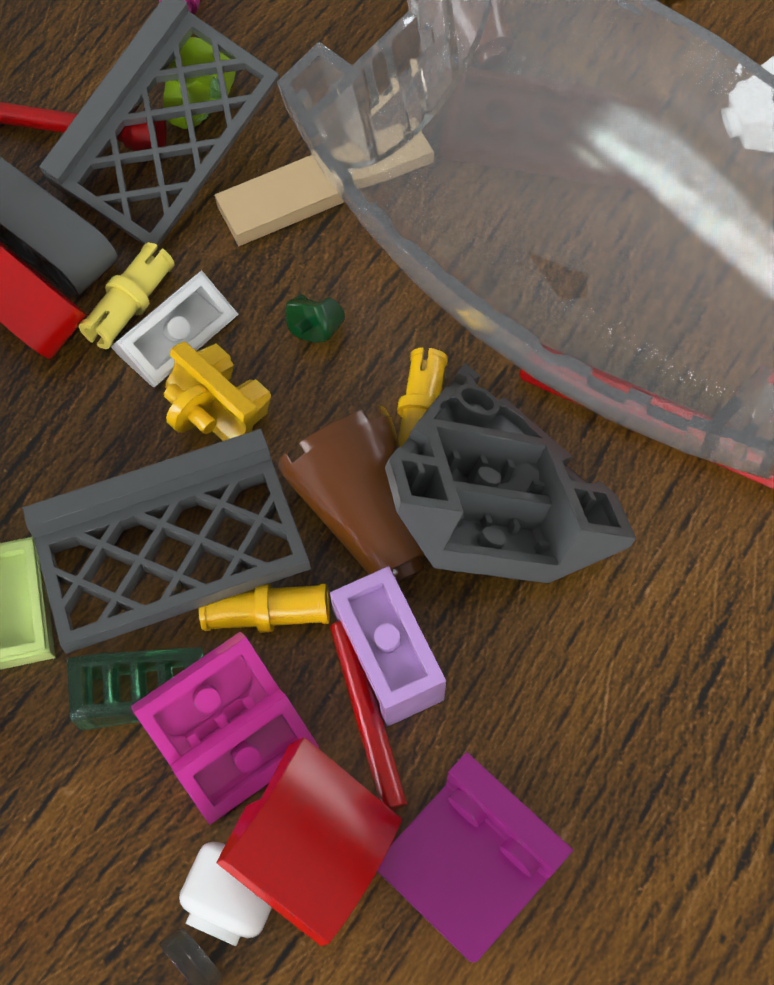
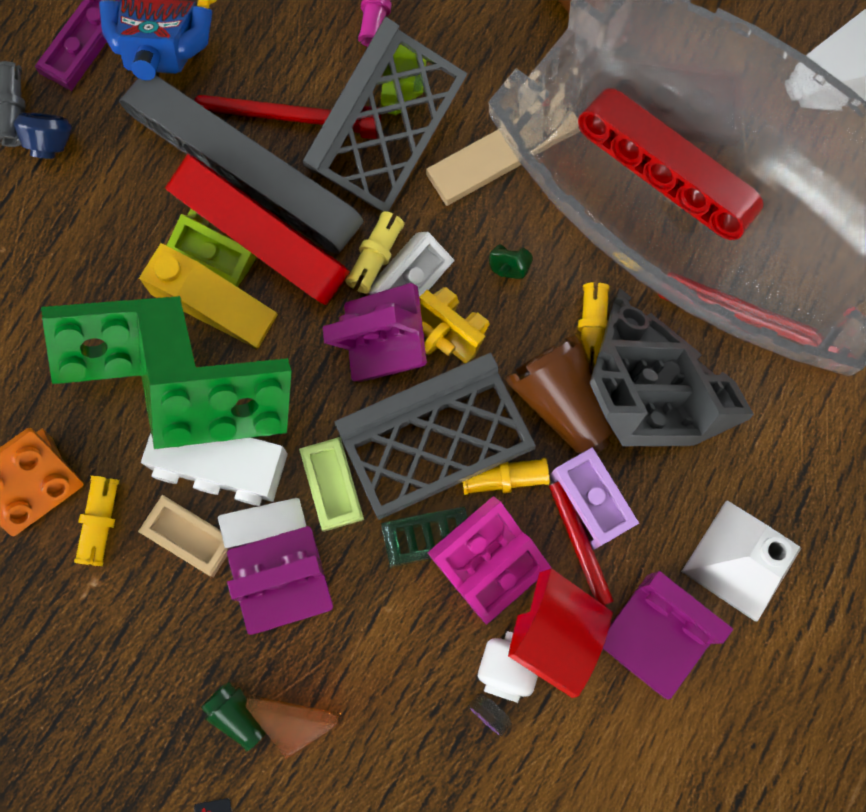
camera: 10 degrees left, 10 degrees up
(110, 397) = (381, 333): none -> magenta bracket
(546, 199) = (670, 164): none -> red beam
(611, 758) = (741, 560): none -> white slope

